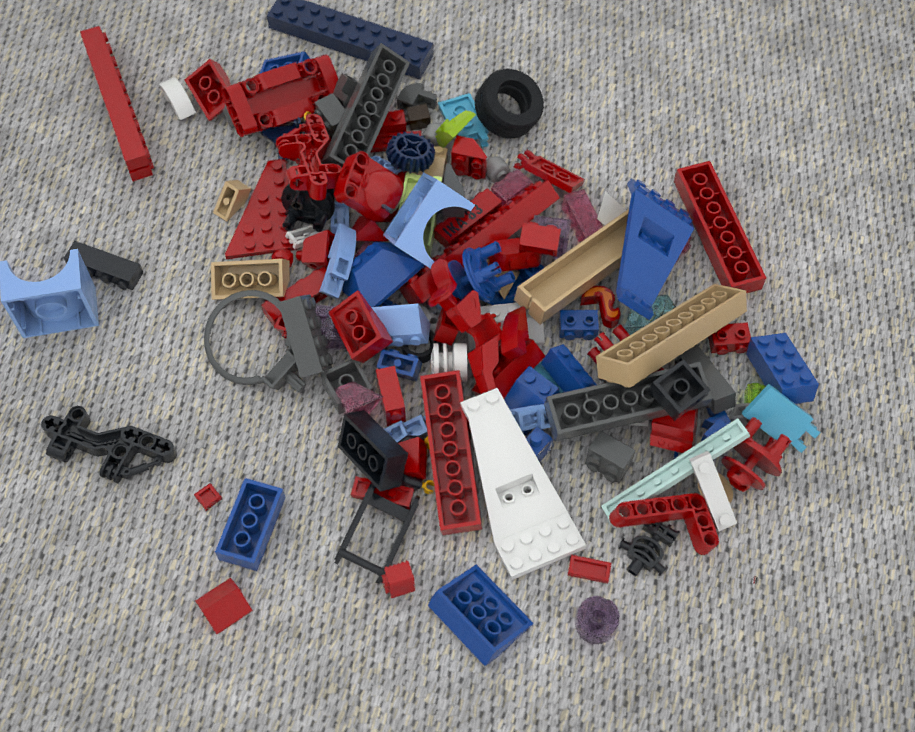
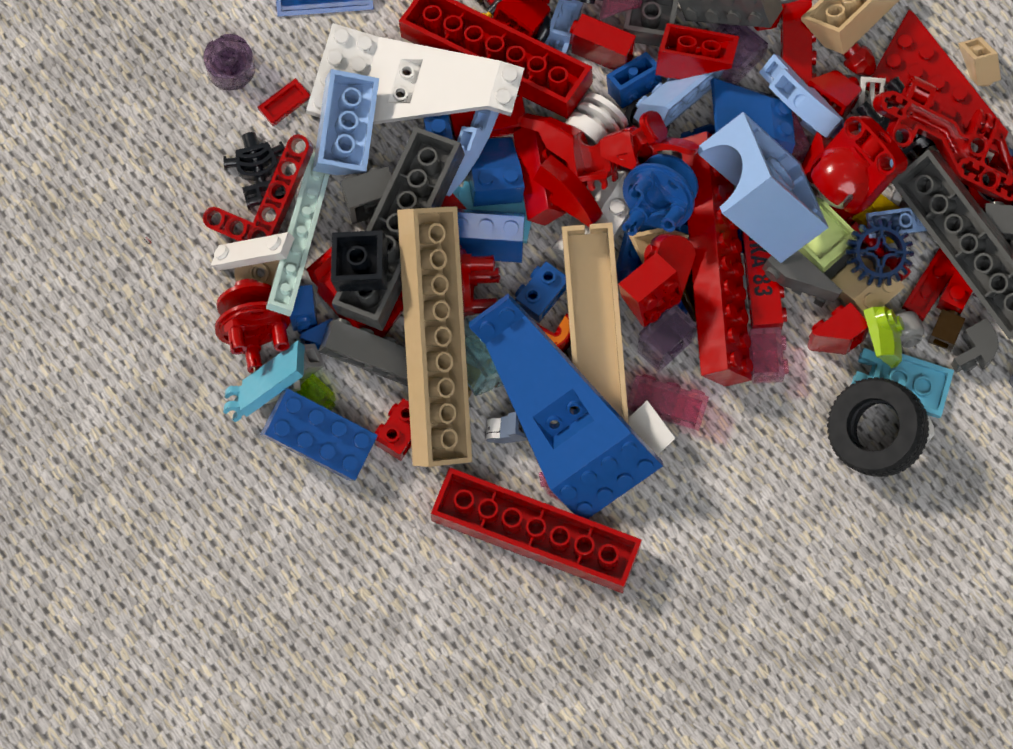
camera: 130 degrees right, 10 degrees up
(496, 169) = (806, 360): light grey head -> none
(549, 171) = (753, 410): red tile -> none
(579, 502) = (345, 123): none -> light blue slope
(677, 283) = (504, 429): none -> sand blue leg

